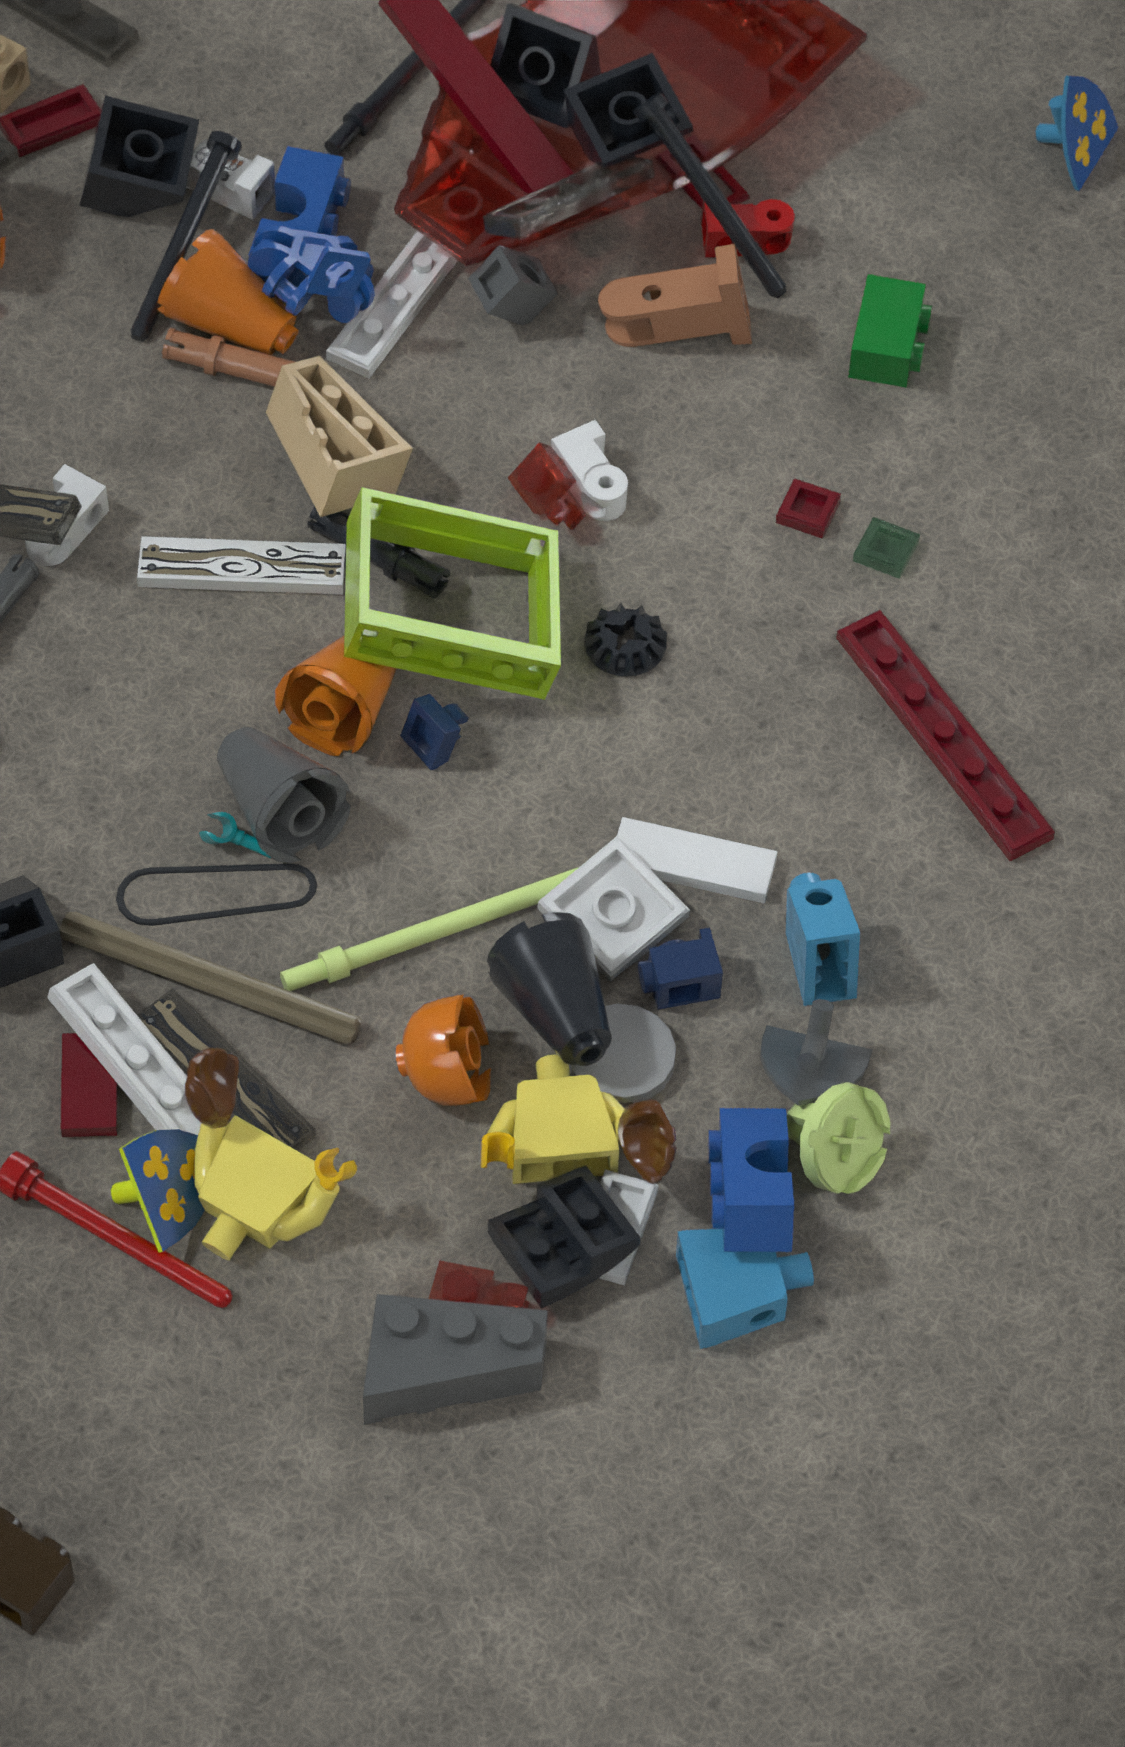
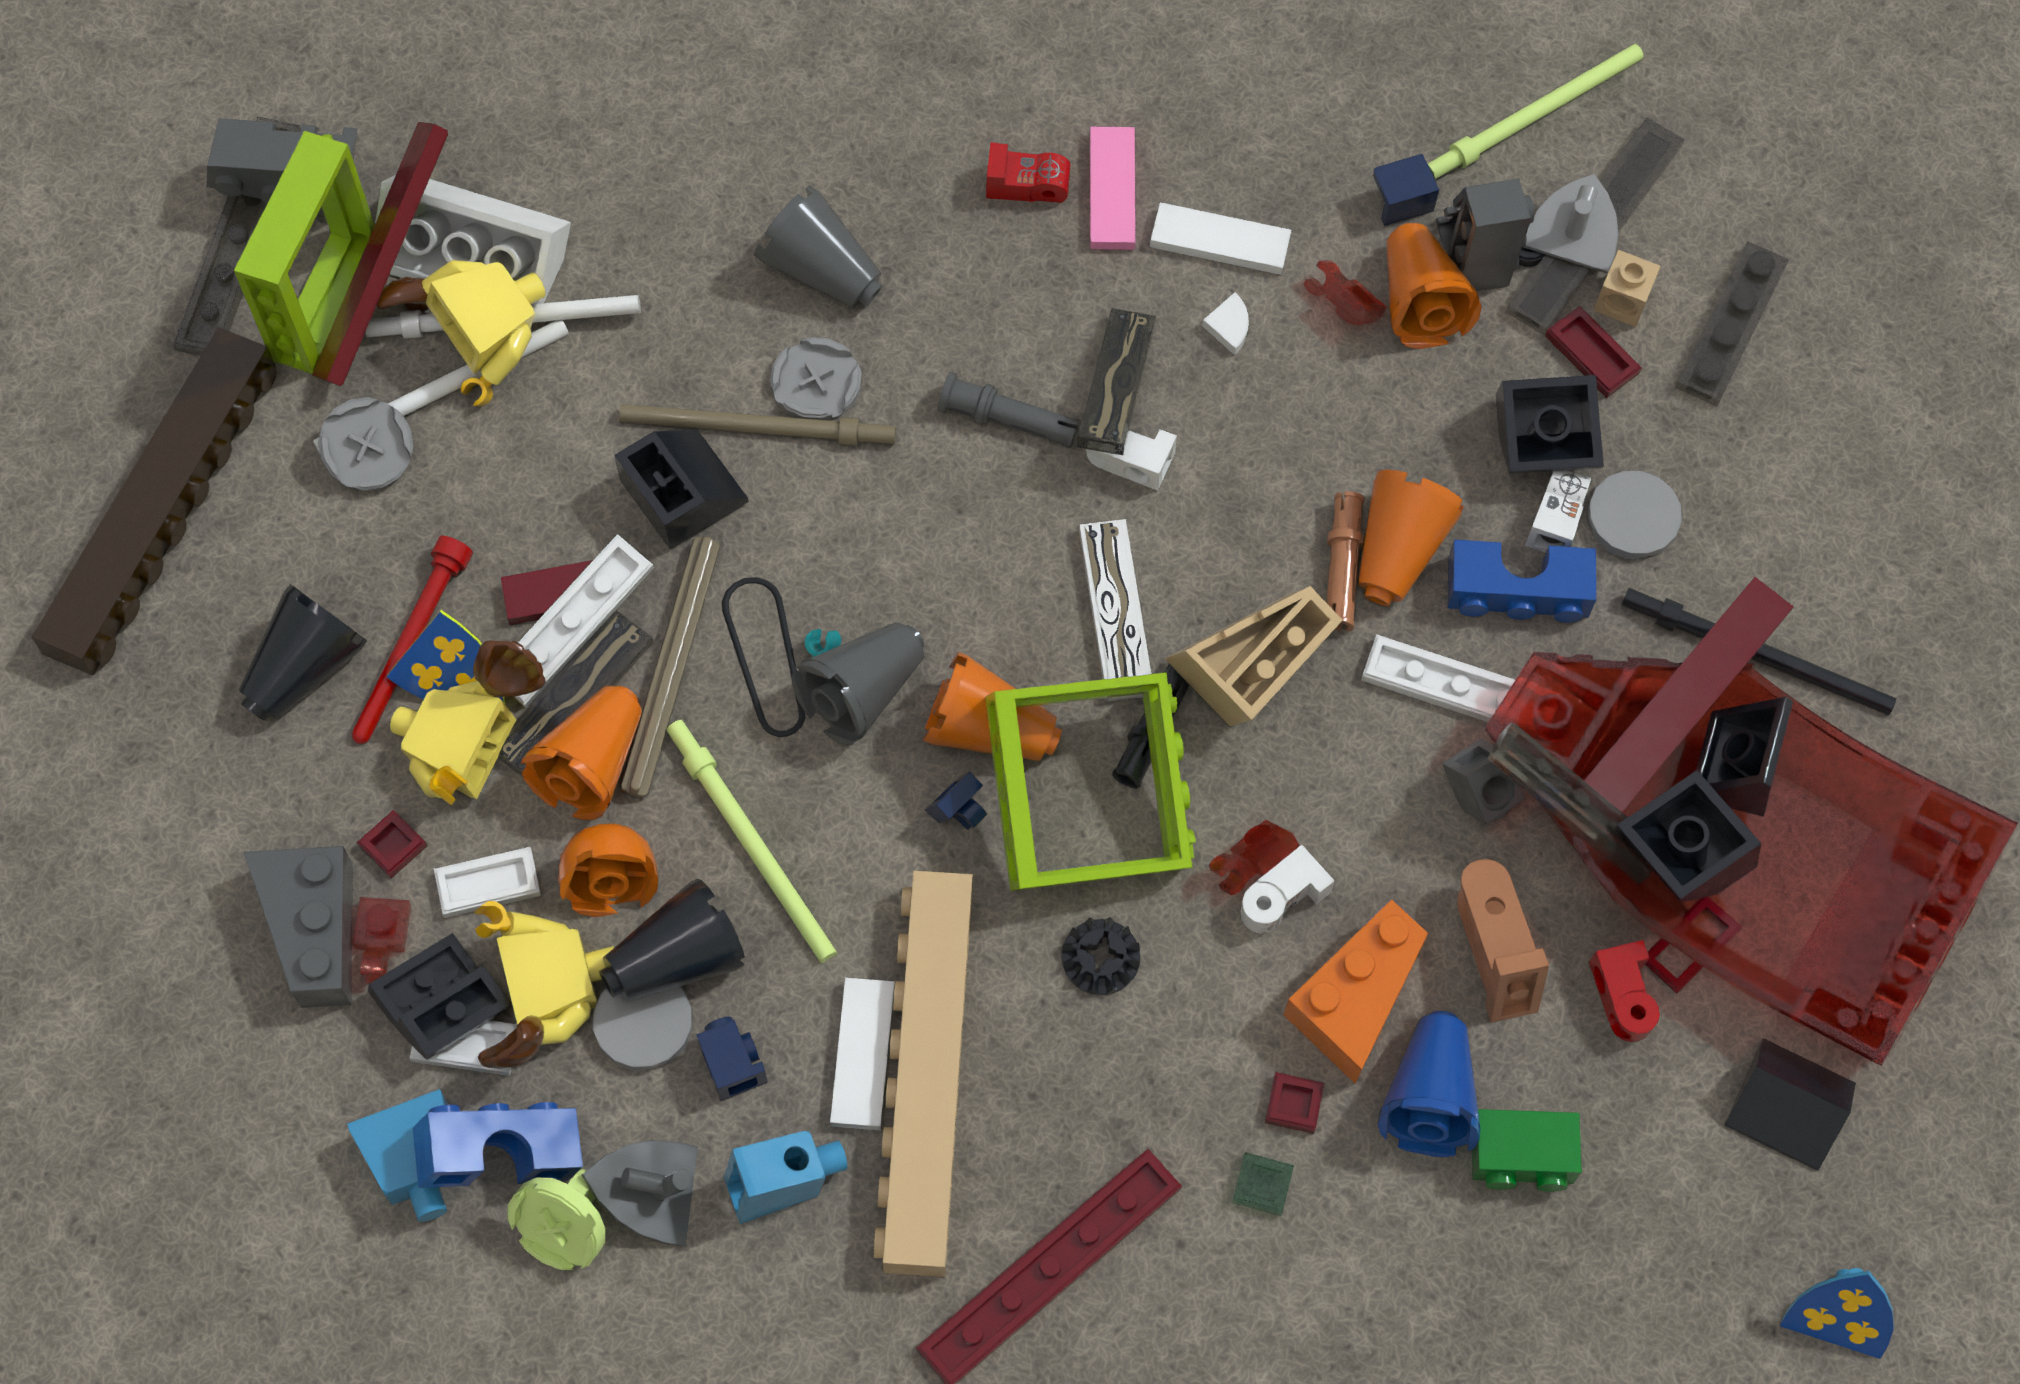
camera: 80 degrees right, 10 degrees up
(114, 1333) = (296, 655): none -> black cone
(222, 148) = (1487, 484): black bar -> none
(251, 115) = (1634, 514): none -> light grey tile
(309, 1056) = (585, 753): none -> orange cone
(328, 262) = (1448, 598): blue piece -> none
(364, 1275) = (392, 844): none -> dark red tile
(430, 1186) = (495, 878): none -> white tile
(619, 904) = (791, 989): white tile -> none
(653, 111) = (1674, 851): black bar -> none
(710, 425) = (1356, 989): none -> orange wedge
(727, 797) = (927, 1075): none -> tan brick
(820, 383) = (1433, 1091): none -> blue cone
(876, 131) = (1791, 1104): none -> black slope

